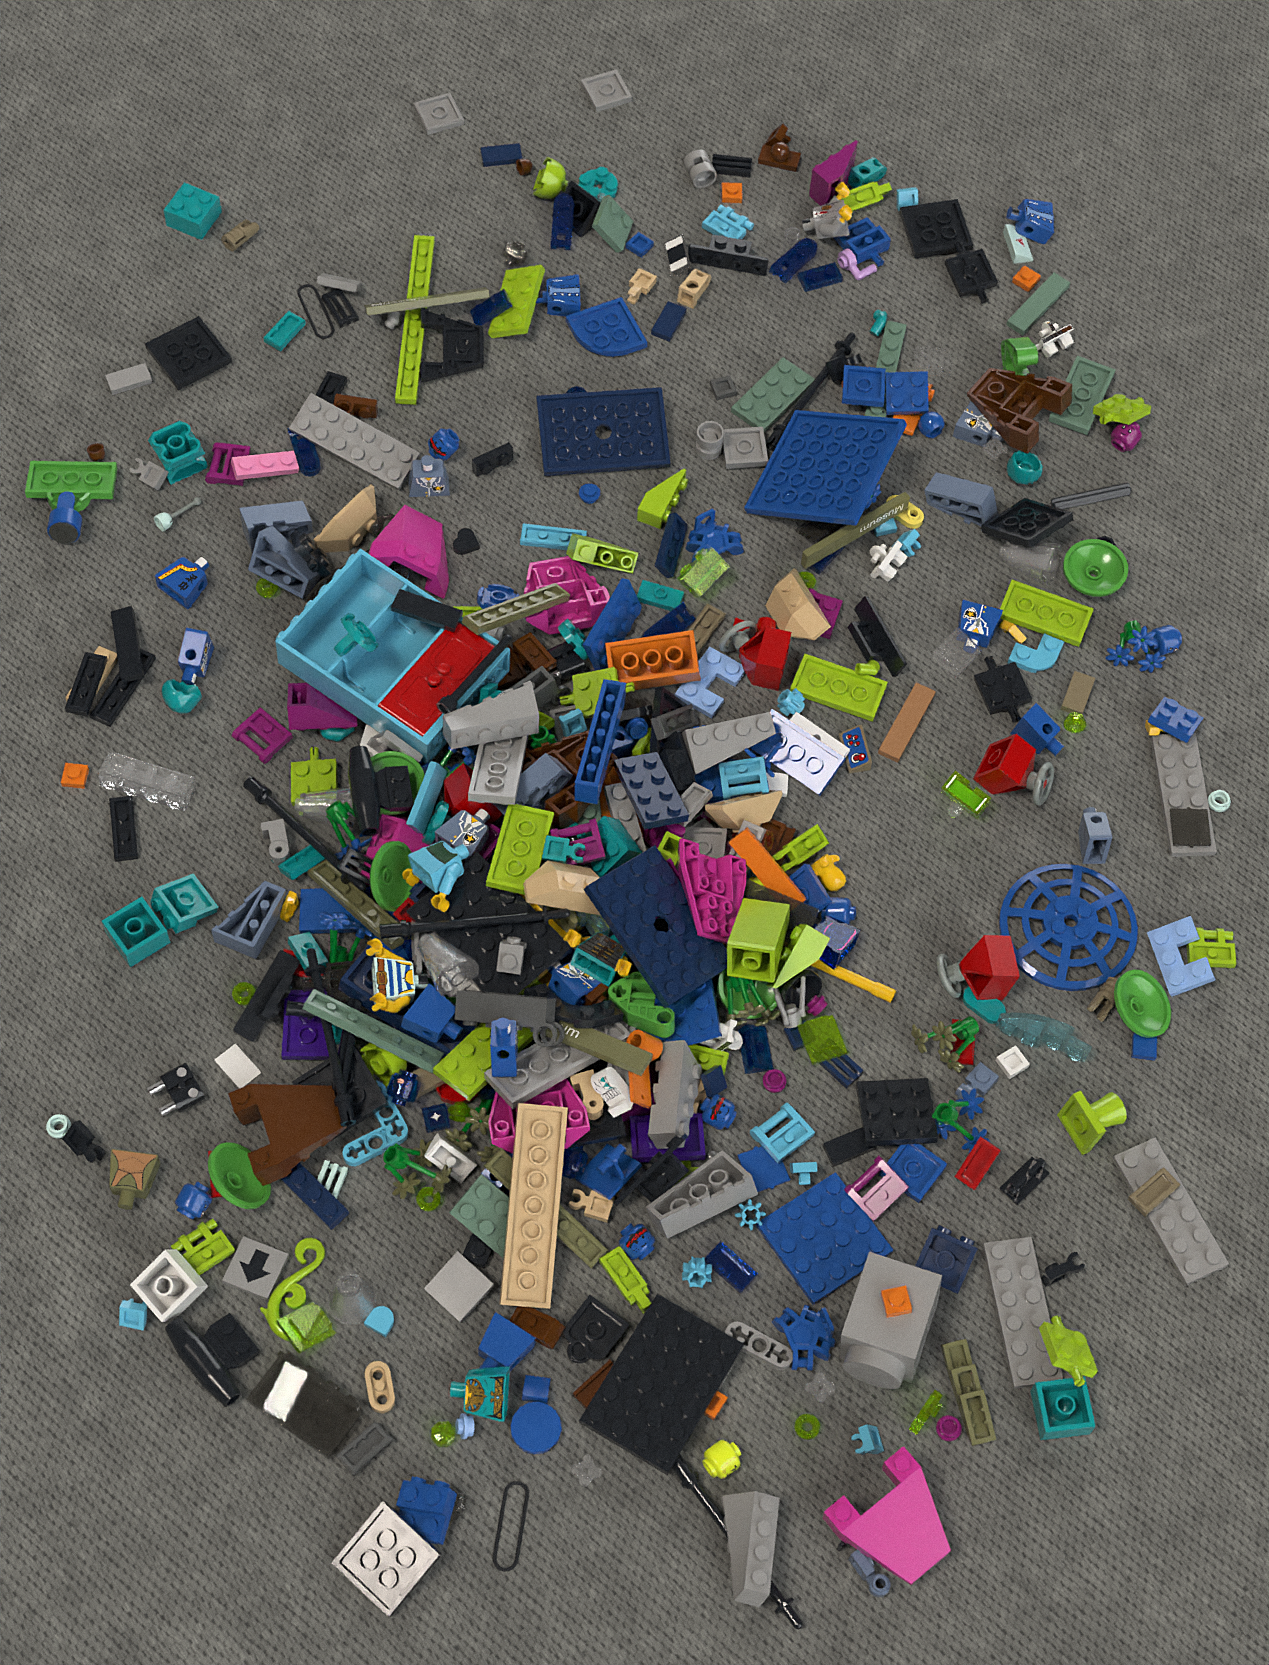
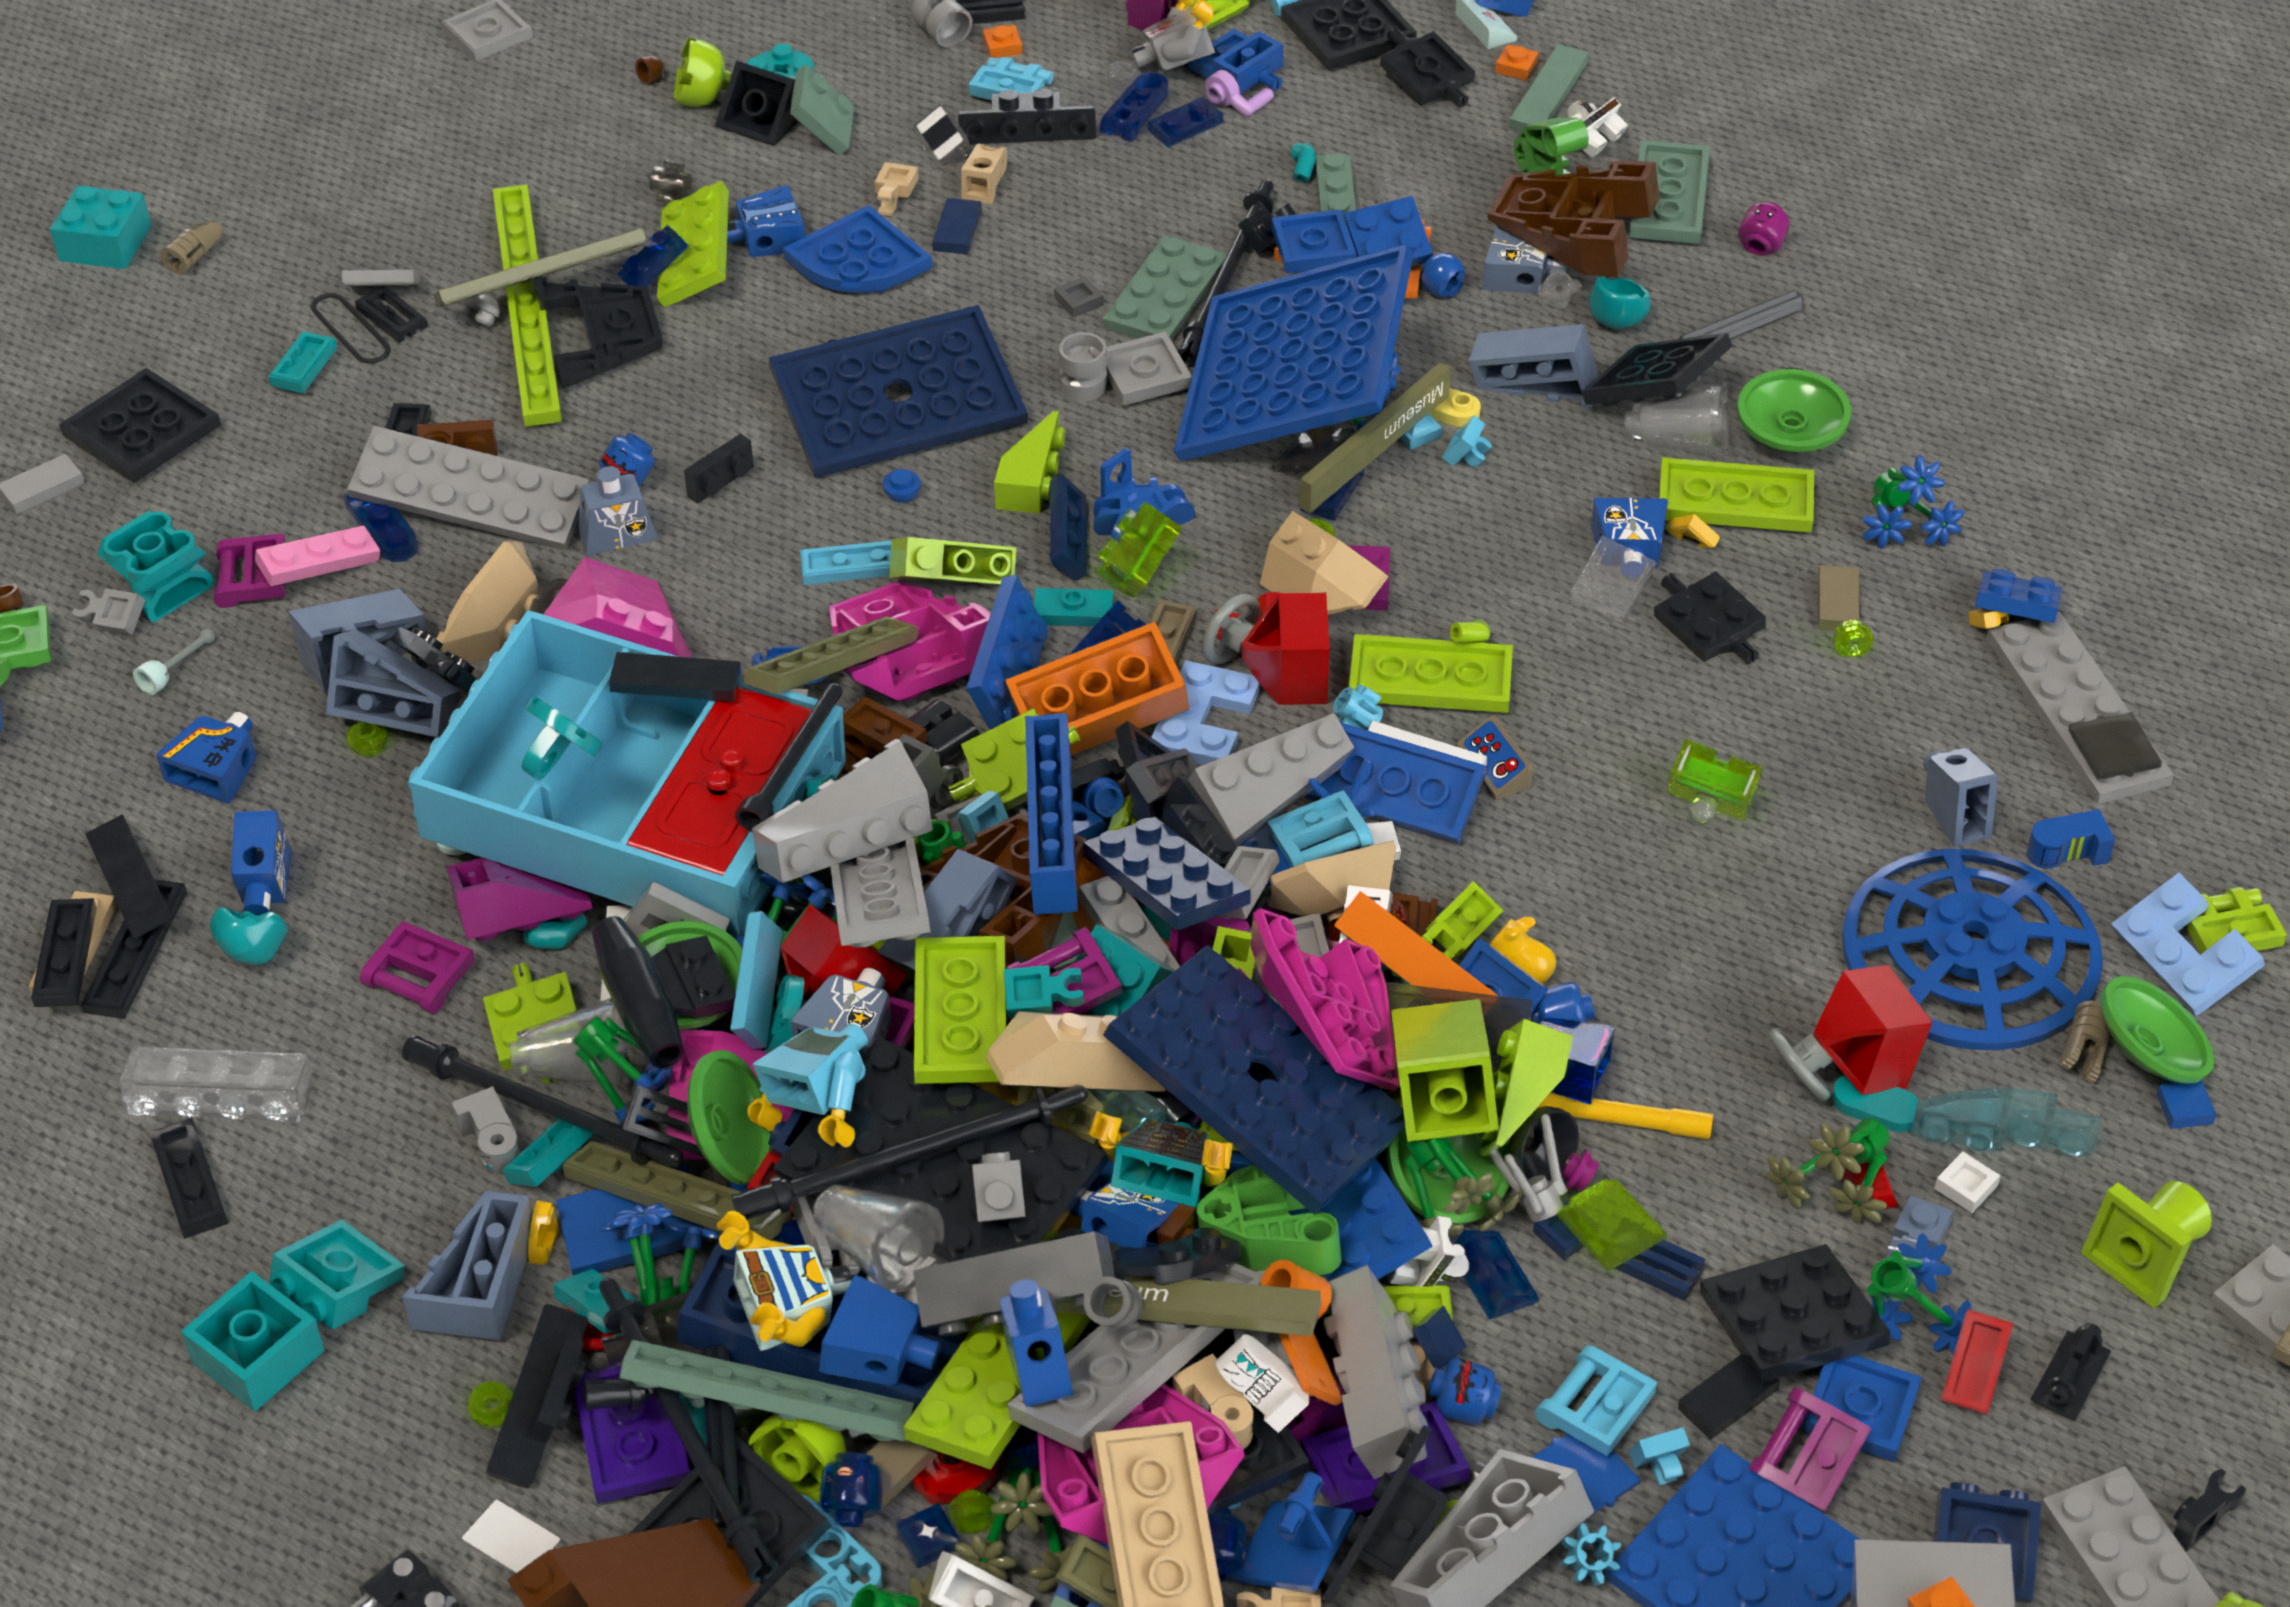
camera: 10 degrees left, 15 degrees down
(74, 775) = (73, 1110): orange plate -> none
(465, 542) = (707, 598): black tile -> none
(500, 154) = (605, 62): dark blue tile -> none
(562, 221) = (737, 124): clear blue plate -> none
(574, 637) = (948, 689): teal plate -> none
(639, 244) = (874, 135): blue tile -> none
(774, 1081) = (1548, 1315): magenta plate -> none
(874, 638) = (1467, 587): black bracket -> none
(892, 555) = (1437, 470): white hips -> none
(906, 722) = (1567, 702): medium nougat tile -> none
(1010, 767) = (1774, 721): red piece -> none
(1039, 659) = (1757, 560): medium azure plate -> none
(1039, 730) = (1797, 660): blue torso -> none
(1121, 409) = (1737, 192): lime plate -> none
(1144, 876) = (2070, 839): none -> blue leg
(1167, 640) = (1960, 488): blue head -> none
(1223, 797) = (2143, 700): light aqua plate -> none

